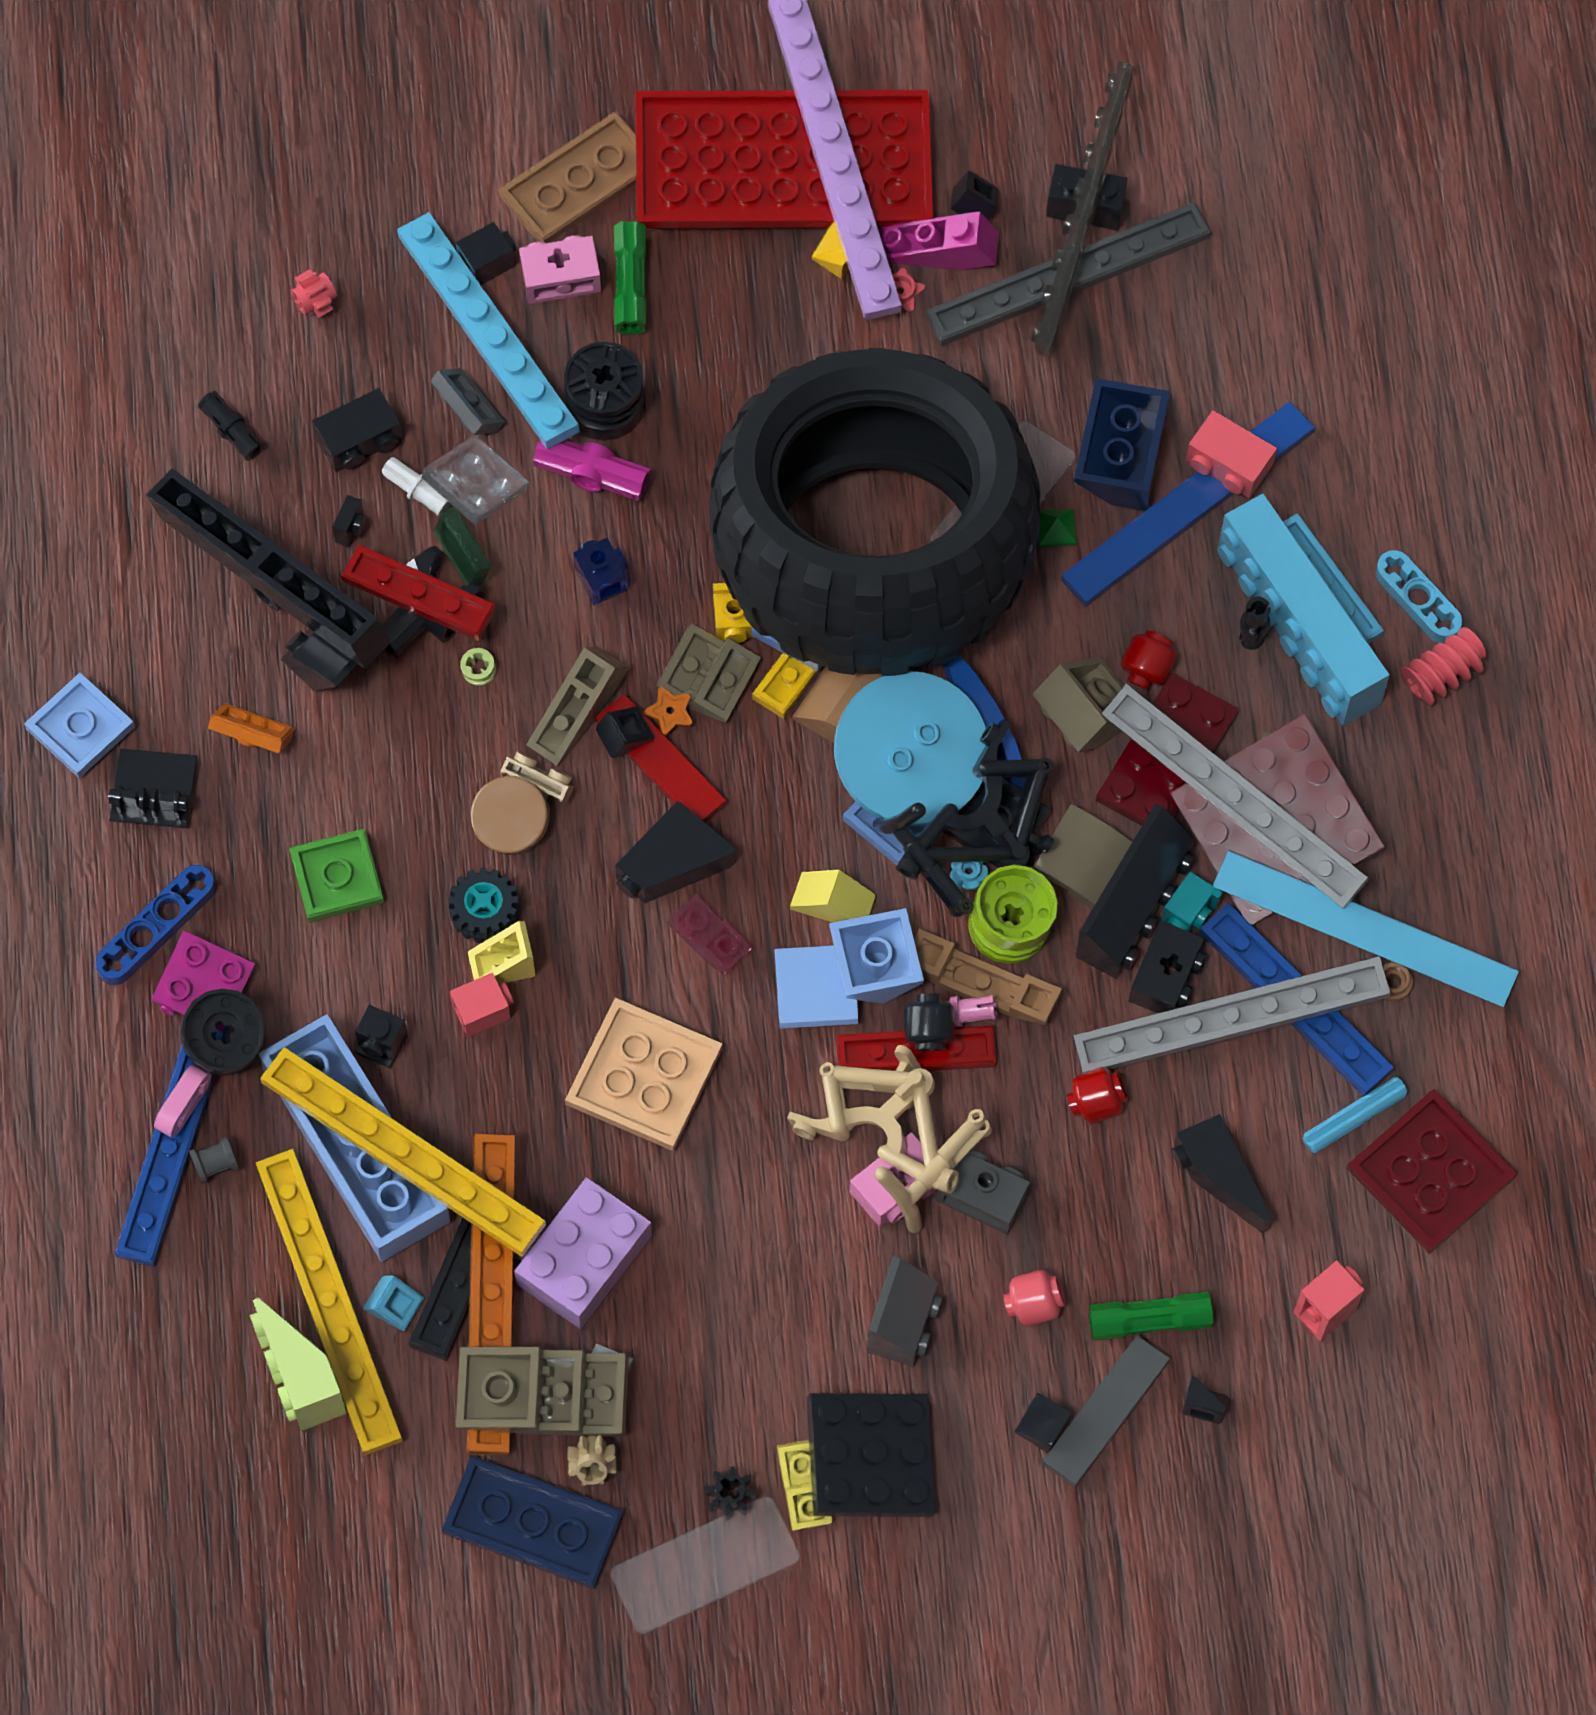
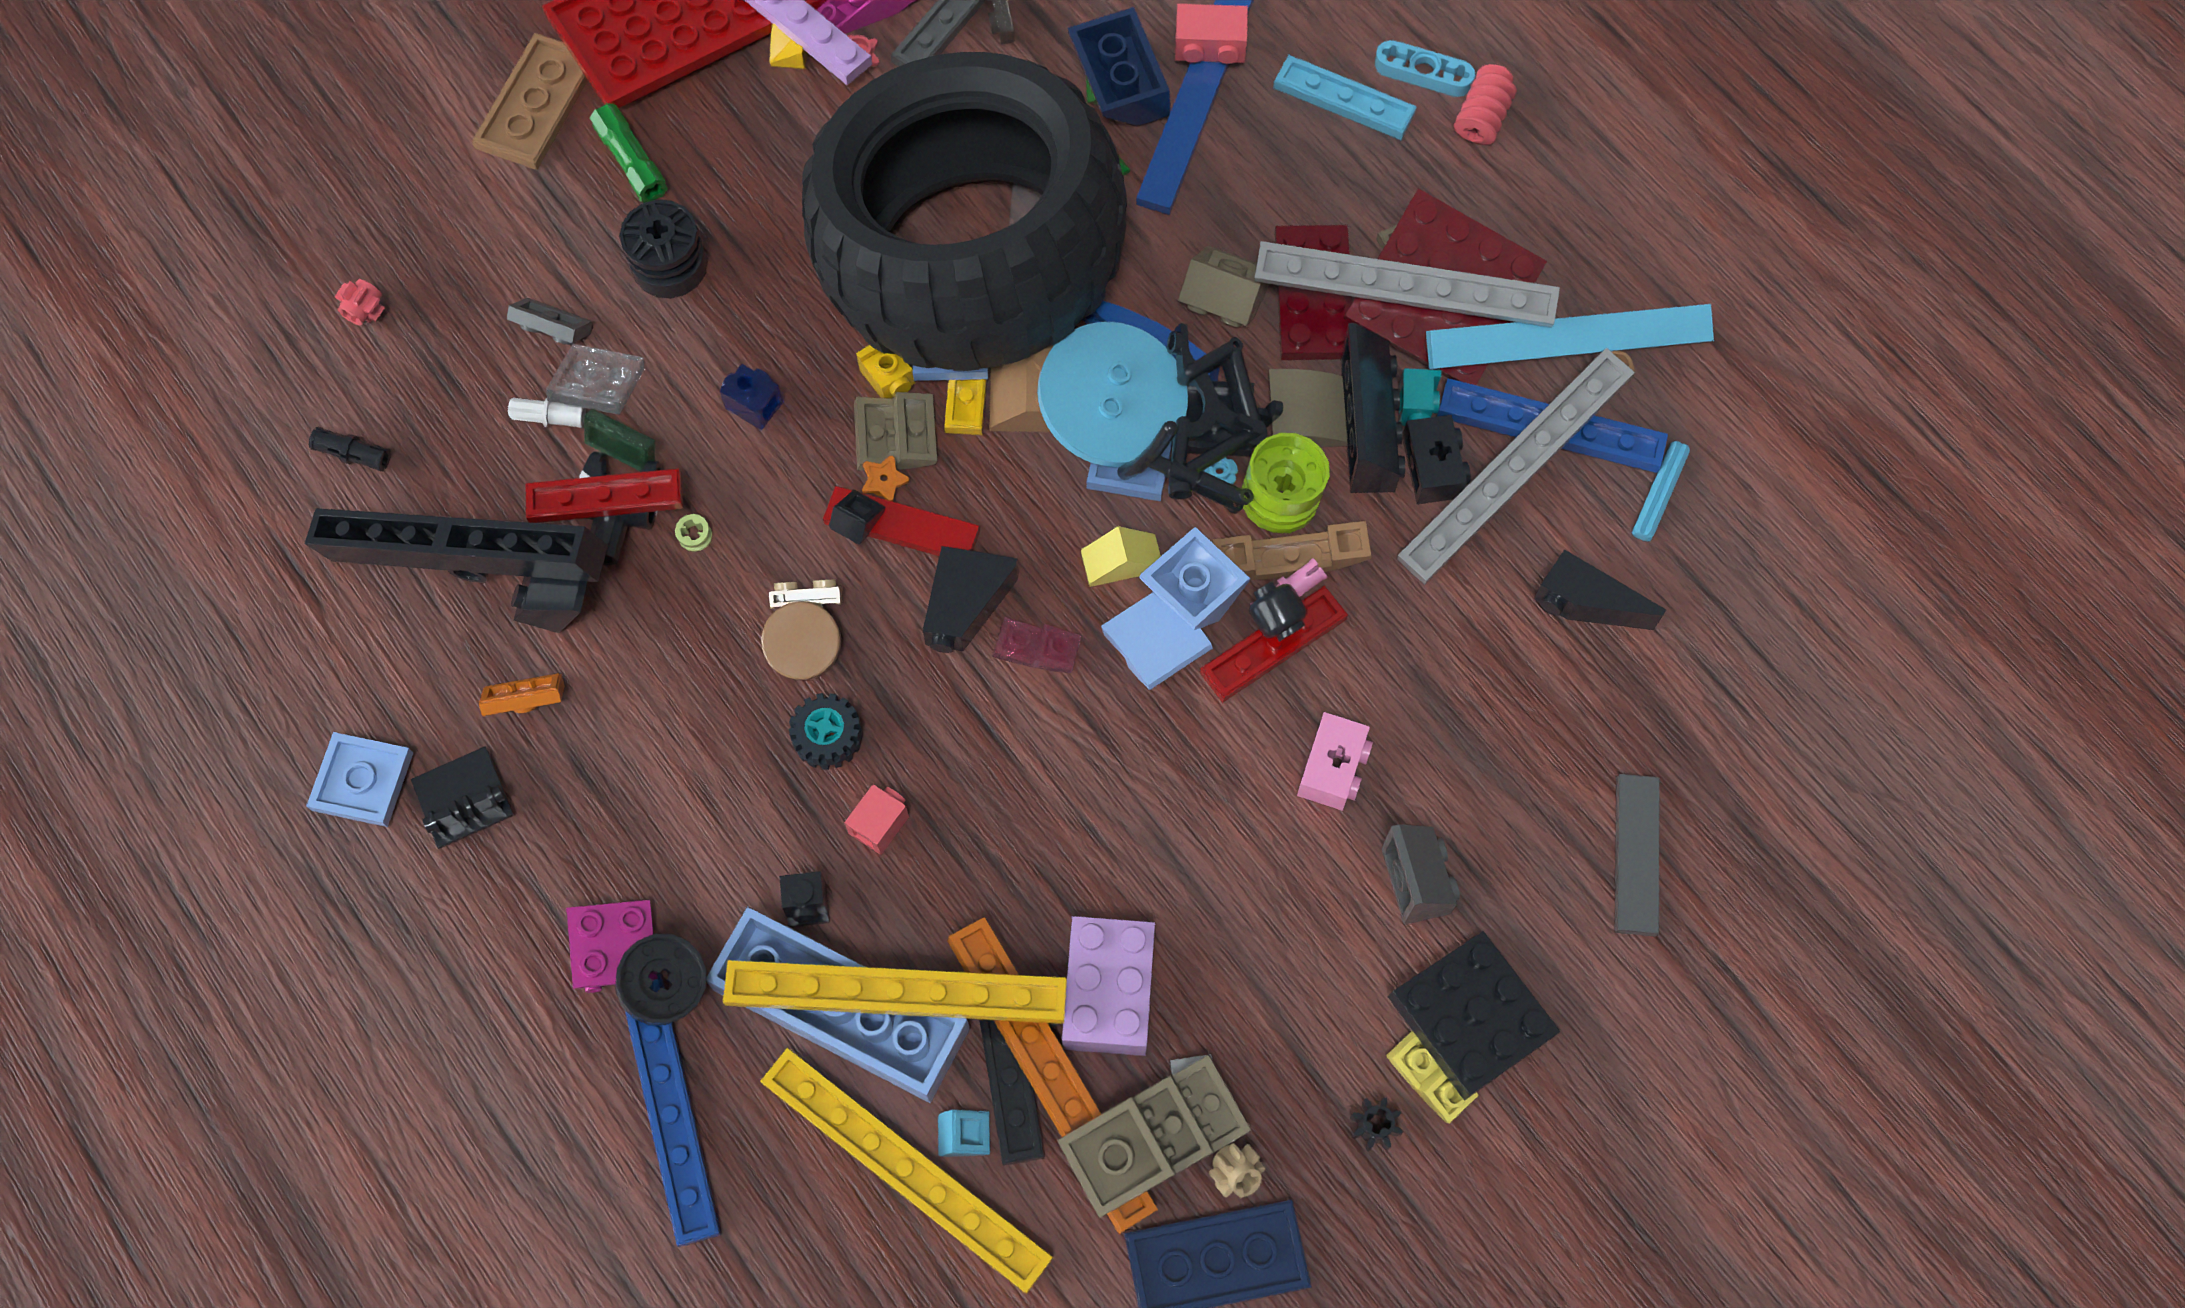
camera: 30 degrees left, 0 degrees up
(150, 920) = (542, 918): blue beam -> none
(182, 1101) = (658, 1065): bright pink beam -> none
(213, 1160) = (719, 1101): dark grey bush -> none
(308, 1380) = (926, 1251): yellowish green slope -> none
(336, 875) = (676, 780): bright green tile -> none
(349, 521) = (505, 472): black plate -> none
(357, 430) = (466, 393): black brick -> none
(487, 252) = (492, 195): black brick -> none
(488, 331) = (533, 254): medium azure plate -> none
(505, 955) = (874, 761): light yellow slope -> none
(547, 282) = (564, 175): bright pink brick -> none
(577, 703) = (800, 516): dark tan slope -> none
(594, 468) = (690, 317): dark pink piece -> none
(644, 1074) = (1059, 797): light nougat plate -> none
(704, 1565) = (1392, 1205): clear piece -> none
(910, 1088) = (1300, 673): tan piece -> none
(987, 1192) = (1412, 726): dark grey brick -> none
(1034, 1297) = (1516, 792): coral head -> none
(1043, 1423) = (1595, 896): black slope -> none
(1097, 1095) = (1451, 592): red head -> none
(1120, 1319) = (1600, 766): green axle -> none
(1148, 659) = (1251, 223): red head -> none
(1204, 1403) = (1712, 798): black slope -> none
(1254, 623) = (1319, 148): black pin -> none
(1302, 610) = (1349, 118): medium azure brick -> none
(1329, 1300) = (1760, 650): coral brick -> none
(1431, 1171) = (1754, 500): dark red plate -> none

